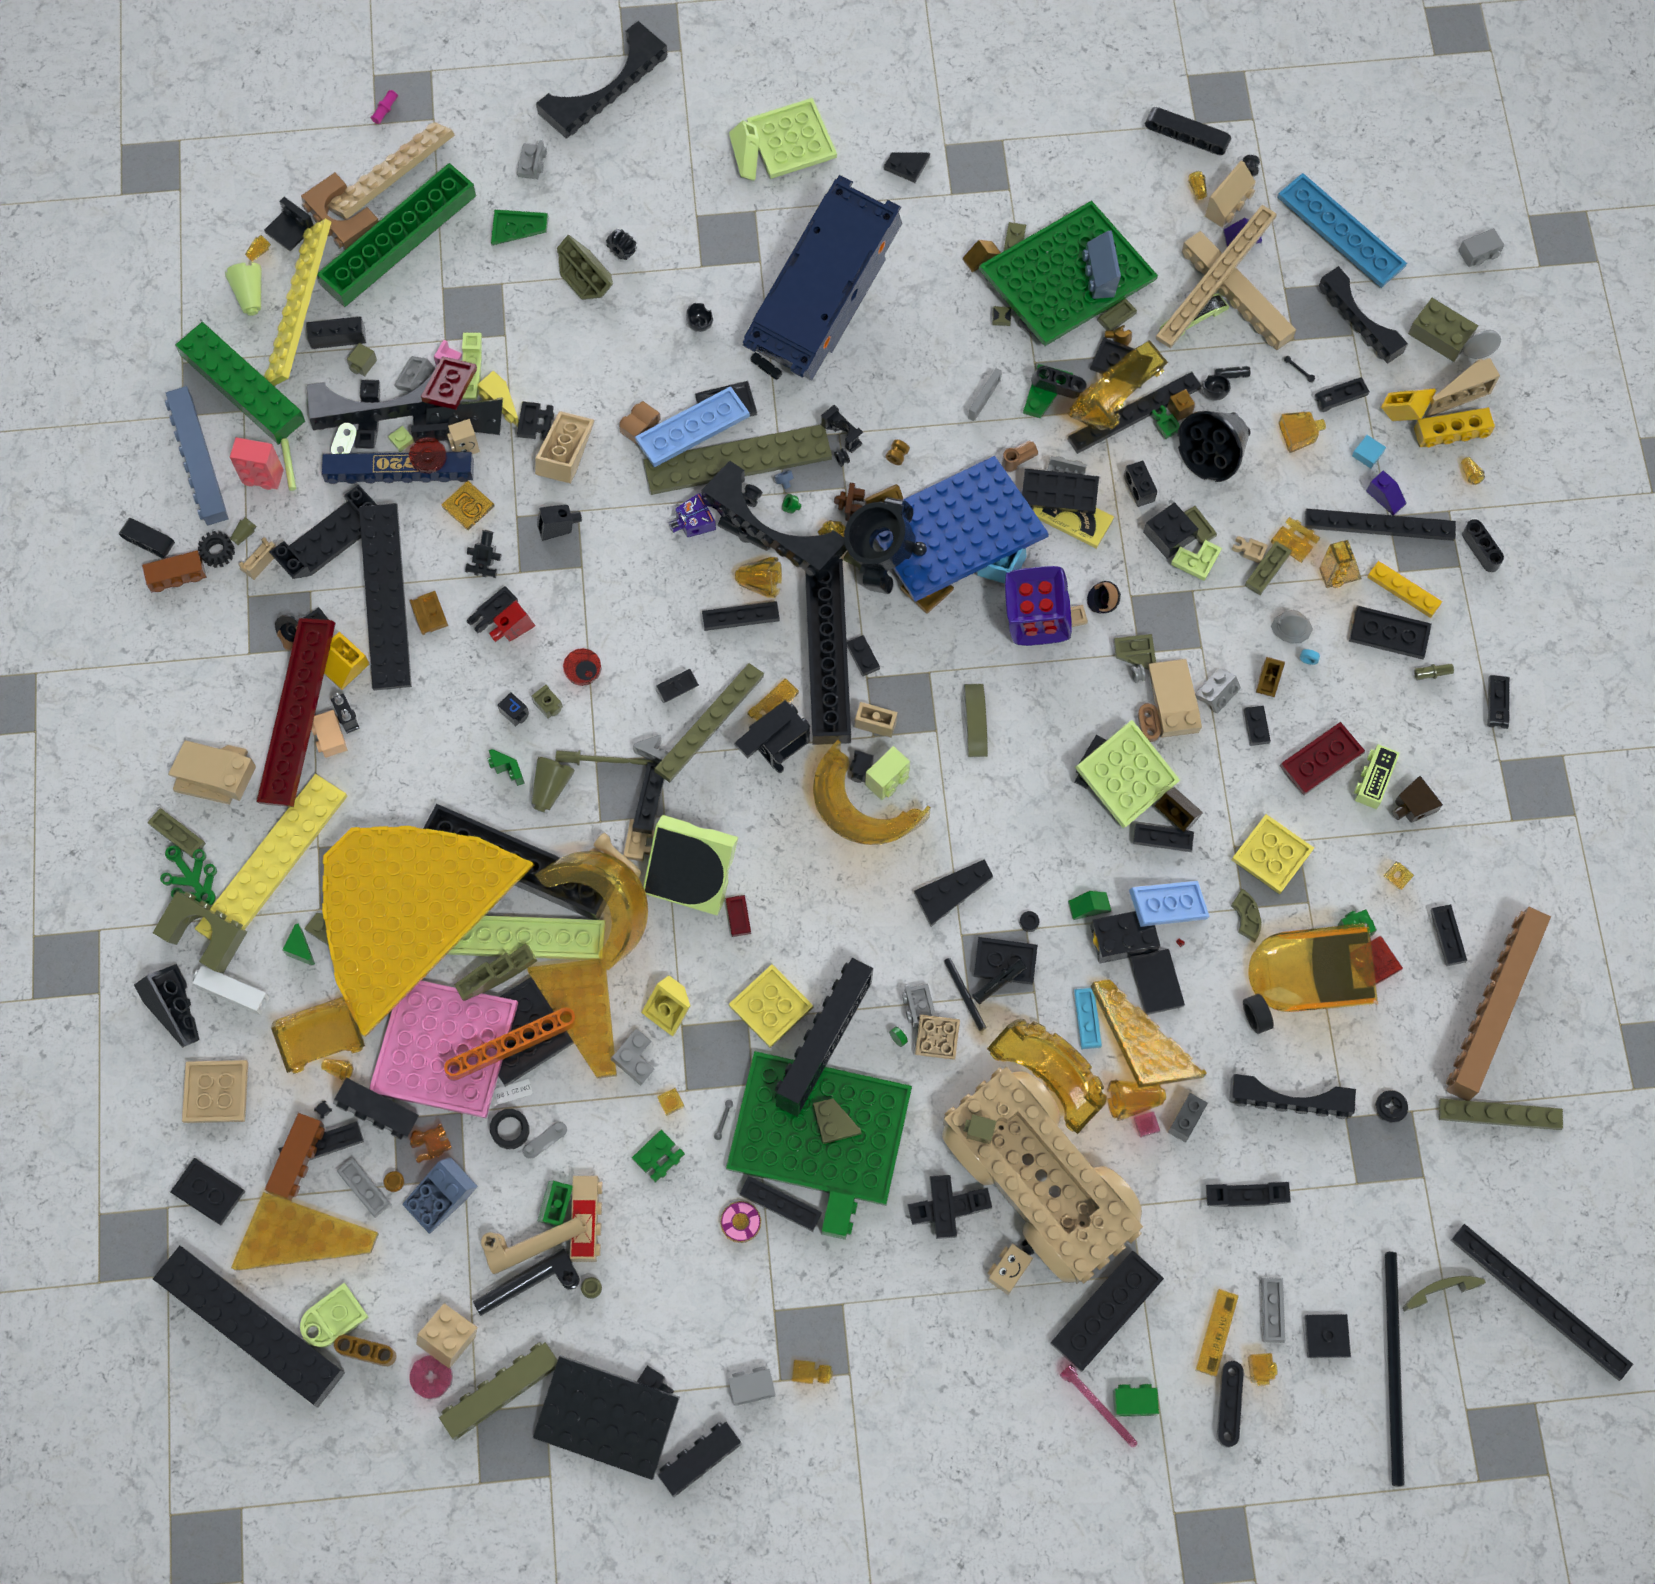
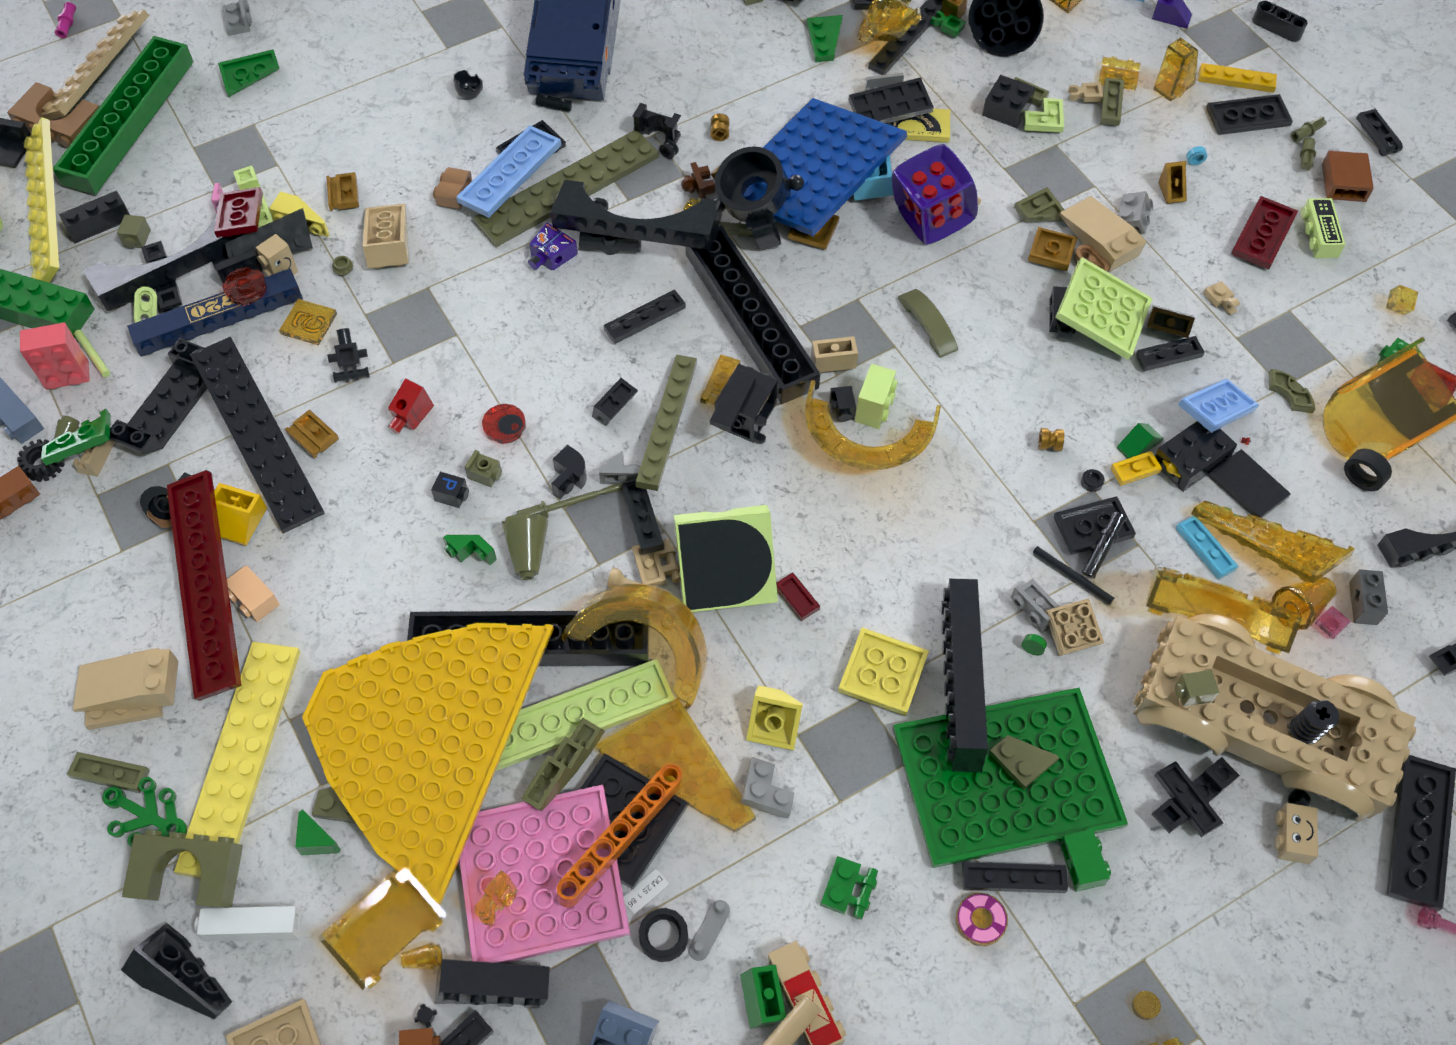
camera: 25 degrees left, 10 degrees down
(253, 548) = (87, 436): none -> green wing
(346, 715) = (260, 564): black piece -> none
(401, 438) = (207, 287): yellowish green plate -> none
(403, 1049) = (498, 894): none -> clear yellow plate
(414, 374) = (195, 224): light grey bracket -> none
(431, 1138) = (575, 988): clear orange animal -> none
(492, 608) = (378, 405): black hinge -> none
(516, 462) = (342, 265): none -> olive plate
(529, 419) = (338, 224): black plate -> none
(546, 387) = (342, 191): none -> pearl gold plate
(556, 521) = (410, 299): black torso -> none
(583, 270) = (331, 83): olive wedge -> none
(616, 733) = (572, 471): none -> black brick
(621, 244) = (360, 49): black gear -> none
(670, 1101) = (831, 820): clear yellow plate -> none
(729, 1104) = (895, 795): flat silver hinge -> none
(761, 576) = (646, 273): clear yellow cone -> none
(784, 478) = (623, 185): sand blue tile -> none
(791, 504) = (641, 203): green tile -> none
(824, 1335) = (1146, 1005): none -> clear yellow tile
(863, 655) = (789, 308): black plate -> none
(946, 893) = (996, 487): black wing -> none
(985, 394) = (772, 67): light grey tile -> none
(1014, 872) = (1051, 439): none -> pearl gold wheel
(1019, 455) = (832, 92): medium nougat piece -> none
(1050, 384) = (836, 21): black beam -> none
(1057, 1187) = (1314, 721): none -> black piece
(1069, 927) = (1136, 468): none -> yellow plate
(1103, 597) = (986, 172): black piece -> none
(1123, 695) = (1052, 249): none -> pearl gold plate
(1138, 673) = (1055, 223): light grey bush -> none
(1140, 483) = (957, 75): black brick -> none
(1244, 802) = (1222, 296): none -> tan plate
(1257, 725) = (1188, 229): black plate -> none
(1272, 854) = (1278, 328): light yellow plate -> none
(1292, 627) = (1163, 138): light grey piece -> none
(1380, 524) = (1192, 34): black plate -> none
(1415, 696) = (1308, 153): none -> olive axle
(1416, 802) = (1371, 234): dark brown torso -> none
(1435, 734) = (1347, 176): none -> dark orange brick

